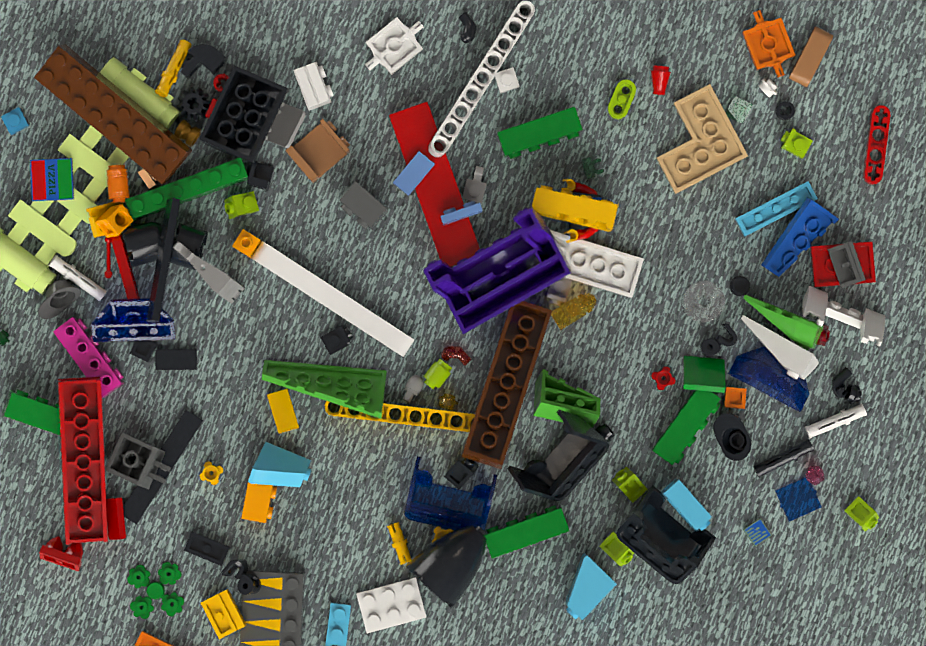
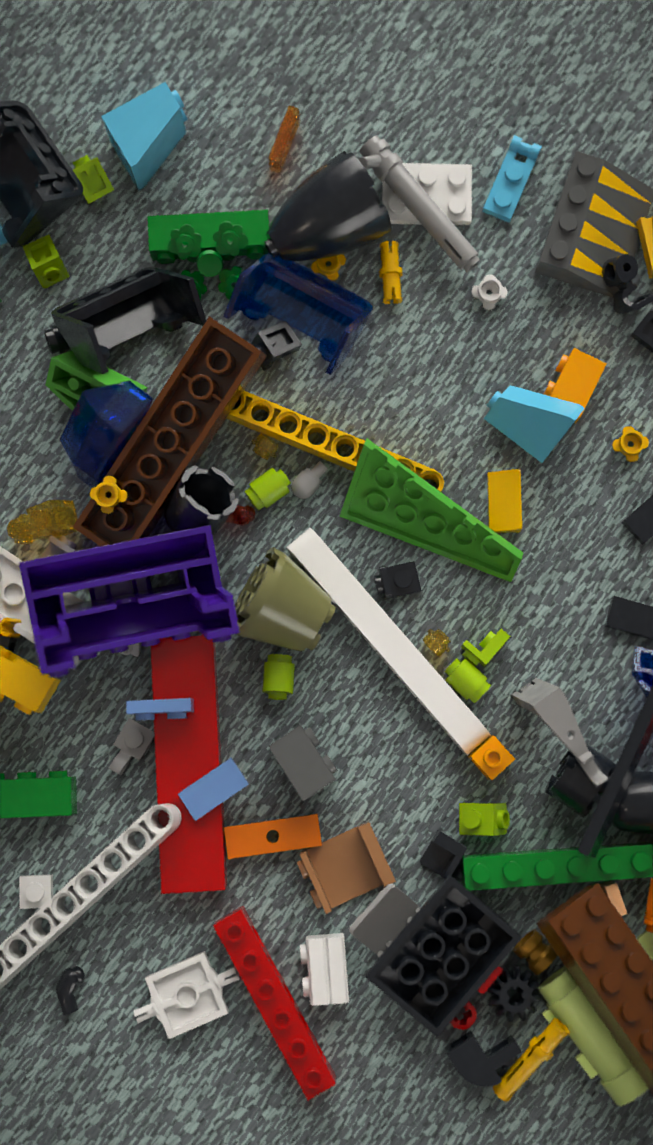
camera: 160 degrees left, 5 degrees down
(266, 315) = (491, 645): none -> lime bracket
(275, 288) = (466, 679): none -> lime brick
(301, 307) = (437, 641): none -> clear yellow plate
(332, 555) = (489, 283): none -> white plate
(338, 57) = (275, 1003): none -> red brick
(357, 162) = (252, 837): none -> orange tile
(395, 255) = (278, 676): none -> lime brick
(405, 300) = (282, 605): none -> olive cone
(418, 609) = (389, 168): none -> light grey cylinder
(475, 349) = (201, 500): none -> black cylinder
(496, 613) = (284, 139): none -> clear orange tile
(518, 511) = (209, 261): none -> green plant
(533, 329) = (99, 494): none -> yellow plate
(551, 378) = (102, 427): none -> clear blue wedge

